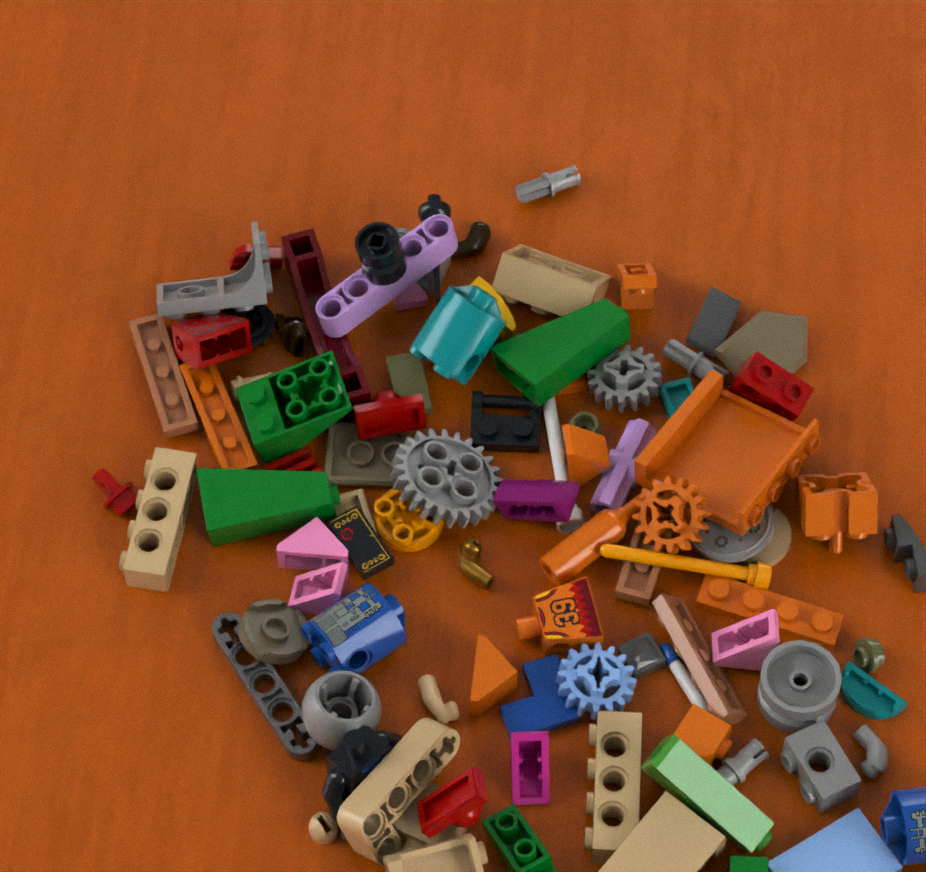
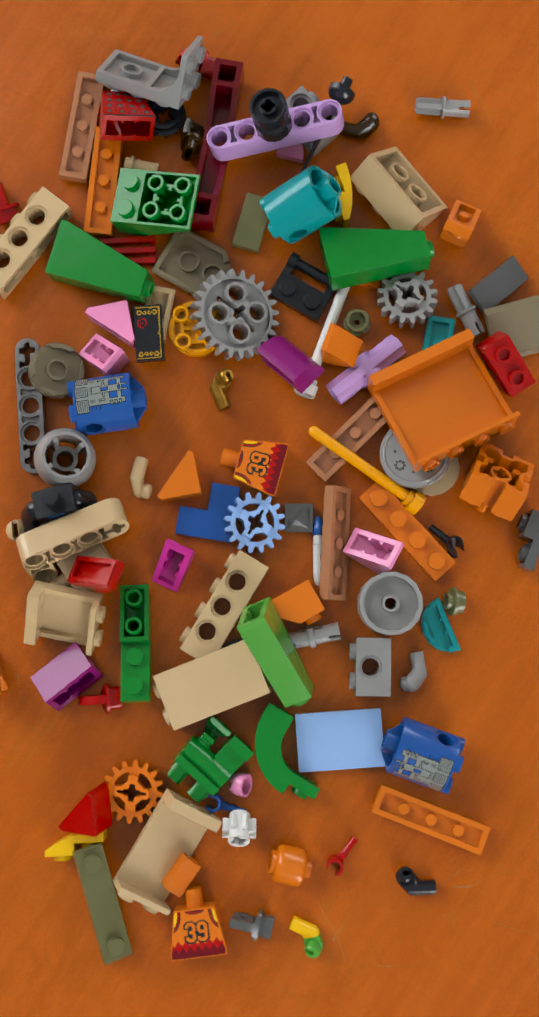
camera: 30 degrees right, 25 degrees up
(389, 415) = (220, 243): red tile -> none
(584, 544) = (311, 413): orange piece -> none
(656, 516) = (379, 442): orange gear -> none
(828, 596) = (453, 541): none -> black hand

